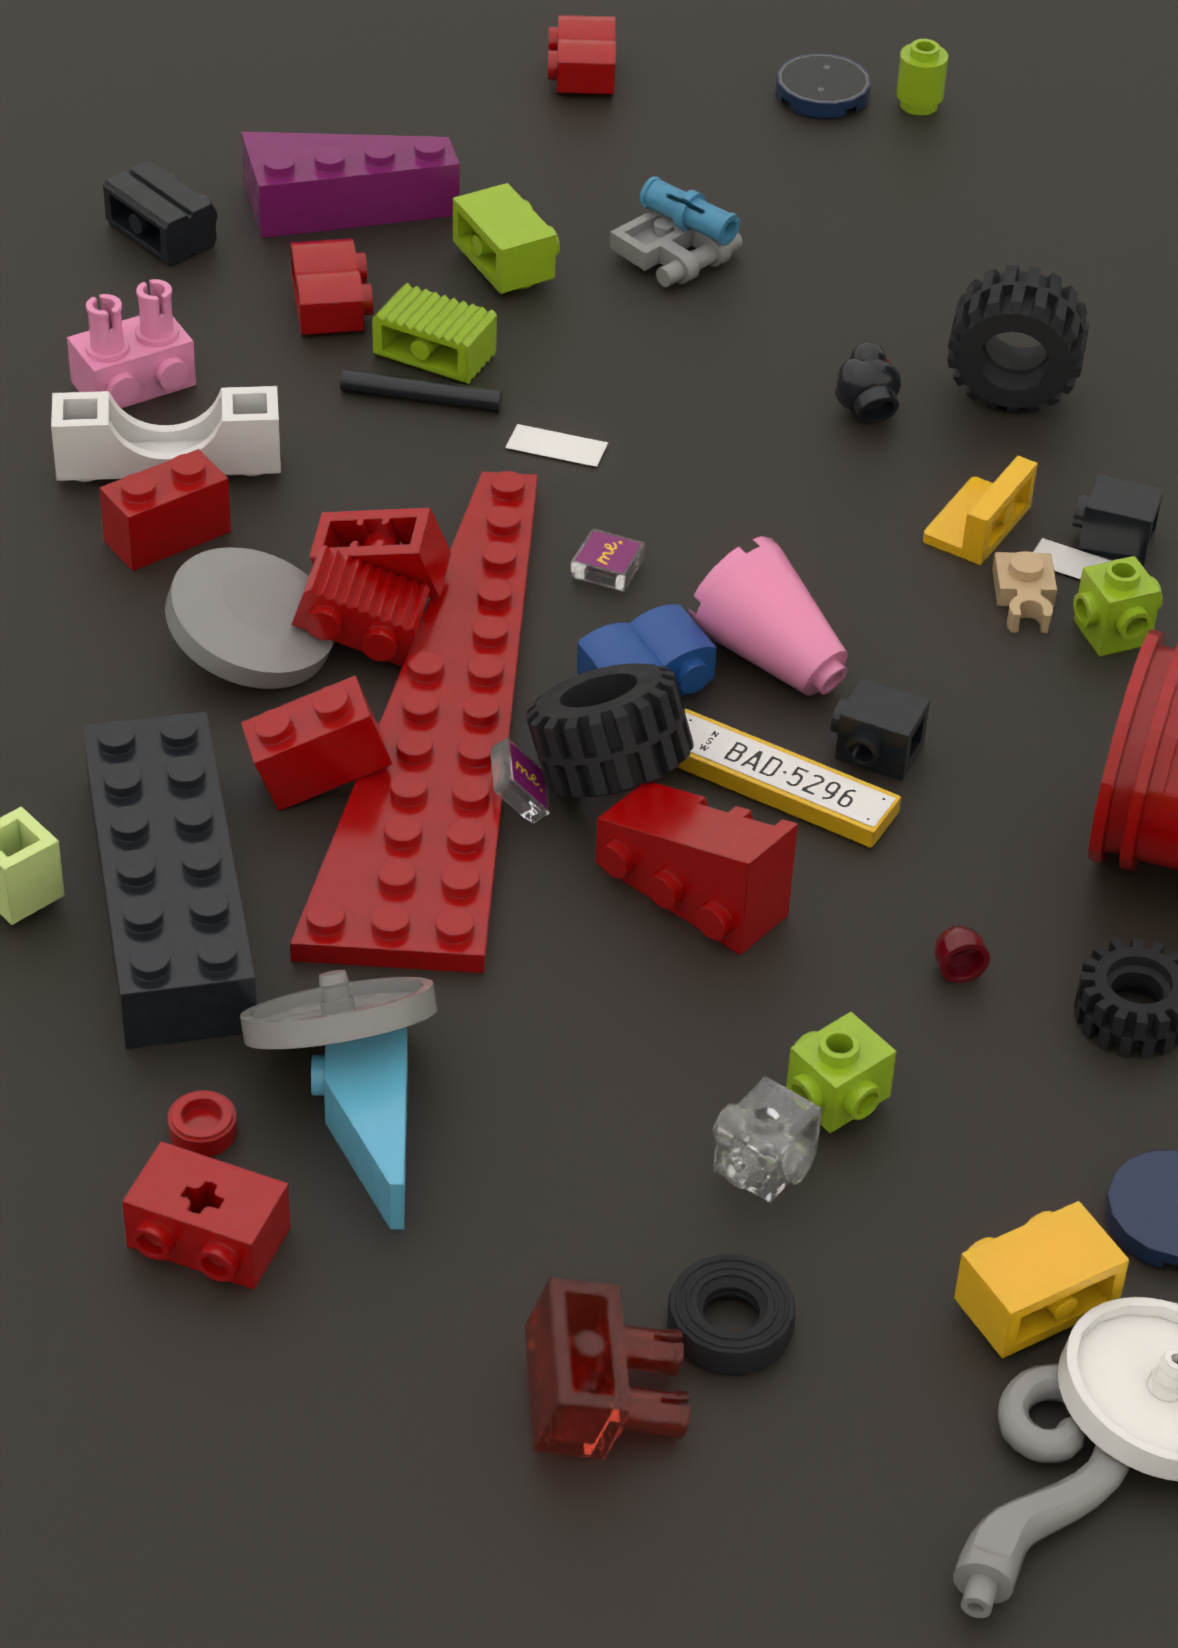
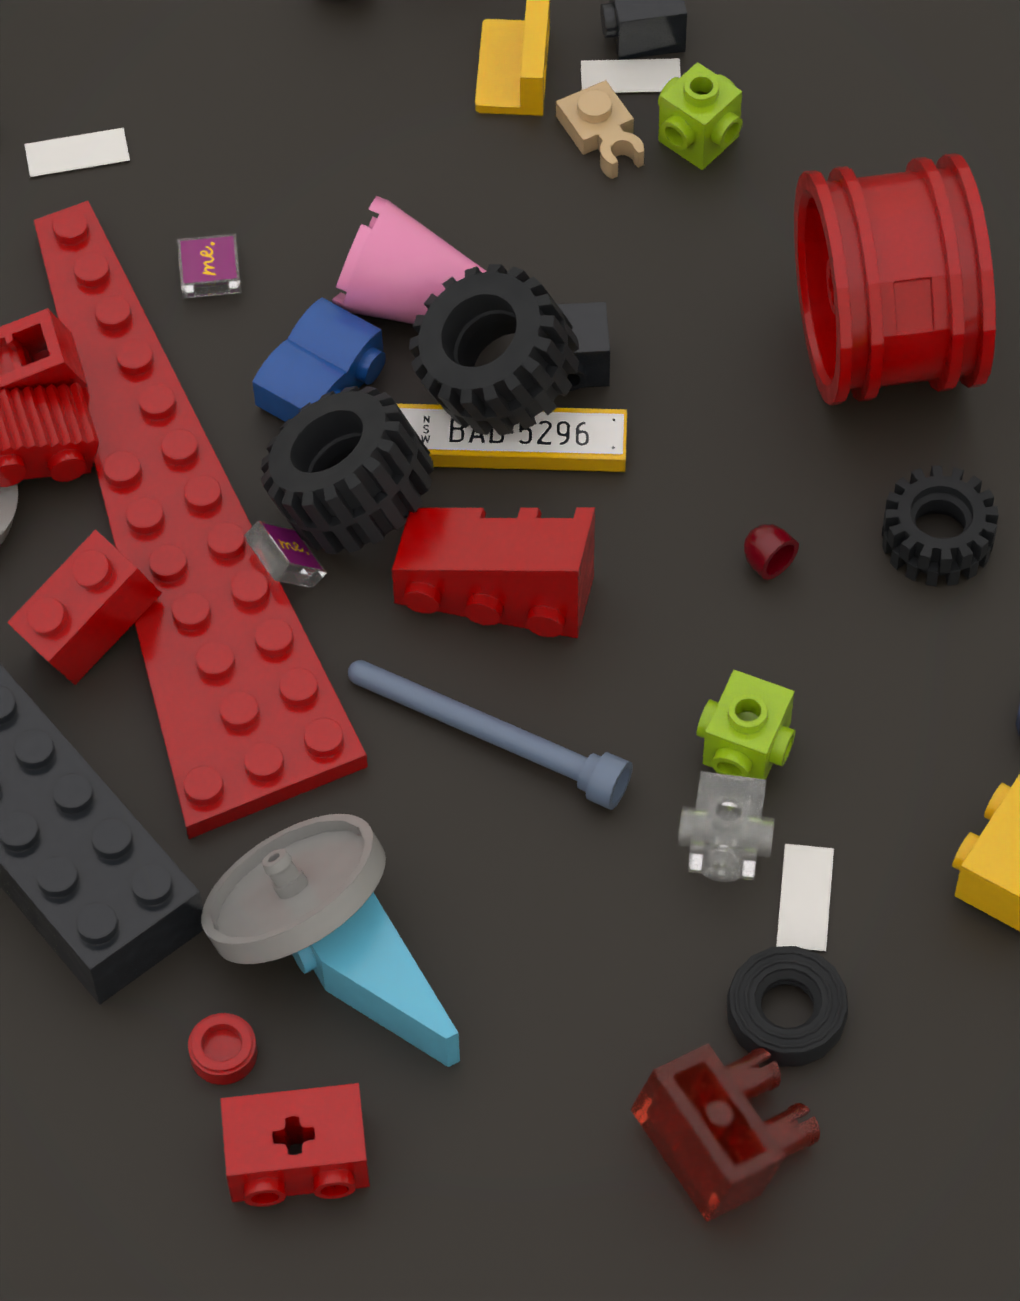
camera: 25 degrees left, 15 degrees up
(680, 1059) = (601, 777): none -> sand blue piece
(798, 688) = (471, 317): none -> black tyre
(813, 1240) = (805, 897): none -> white sticker

